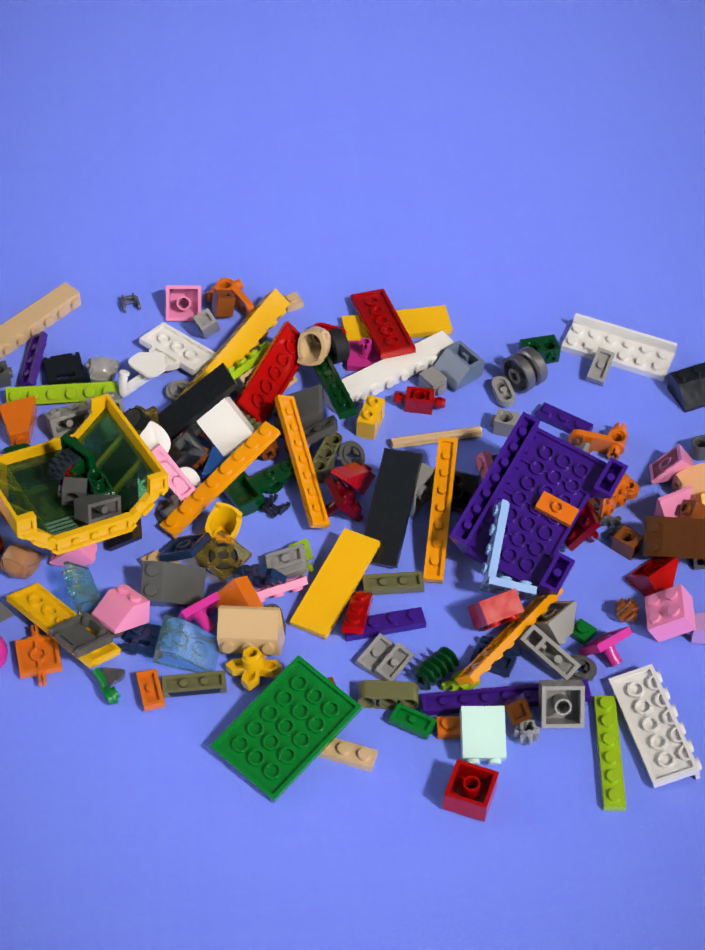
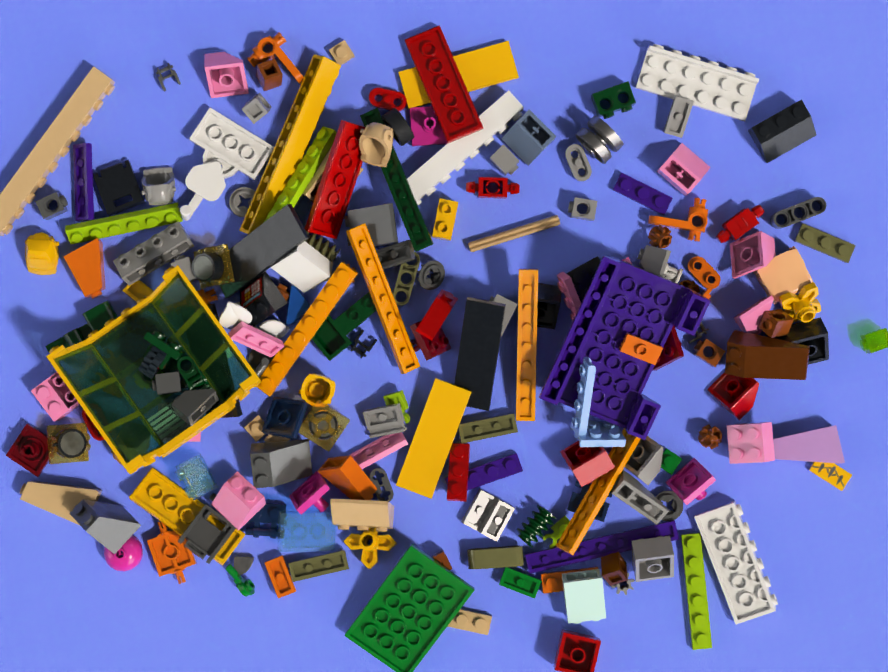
camera: 10 degrees left, 40 degrees up
(261, 575) = (363, 447): dark blue plate -> none
(602, 404) = (683, 169): none -> bright pink slope
(657, 446) = (740, 224): none -> red piece

